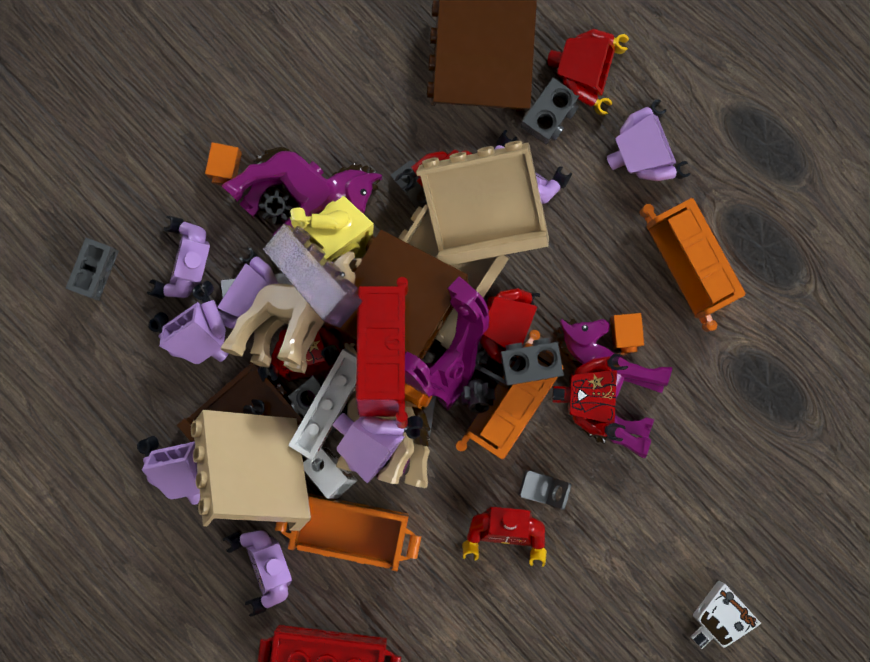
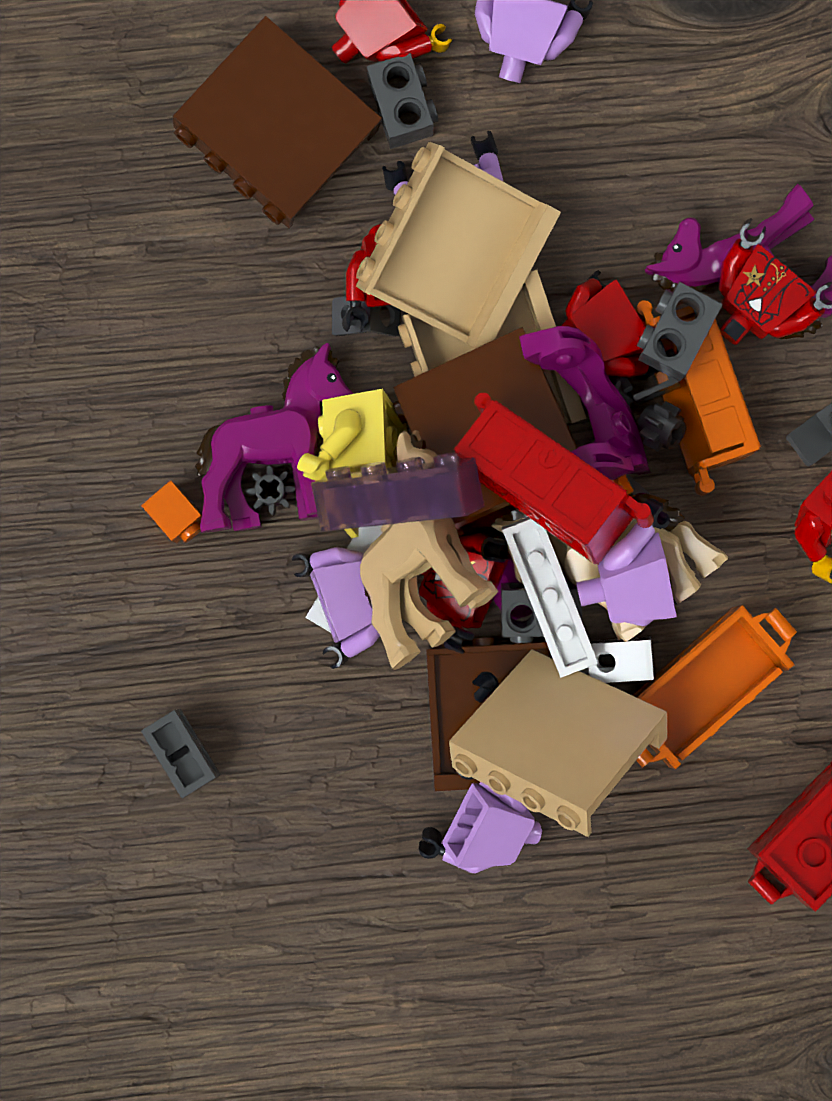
camera: 45 degrees left, 0 degrees up
(188, 263) = (257, 635): lavender torso -> none
(195, 332) = (345, 690): lavender torso -> none
(268, 566) = (673, 808): lavender torso -> none
(627, 332) = (716, 206): orange brick -> none
(694, 259) = (695, 67): orange container -> none

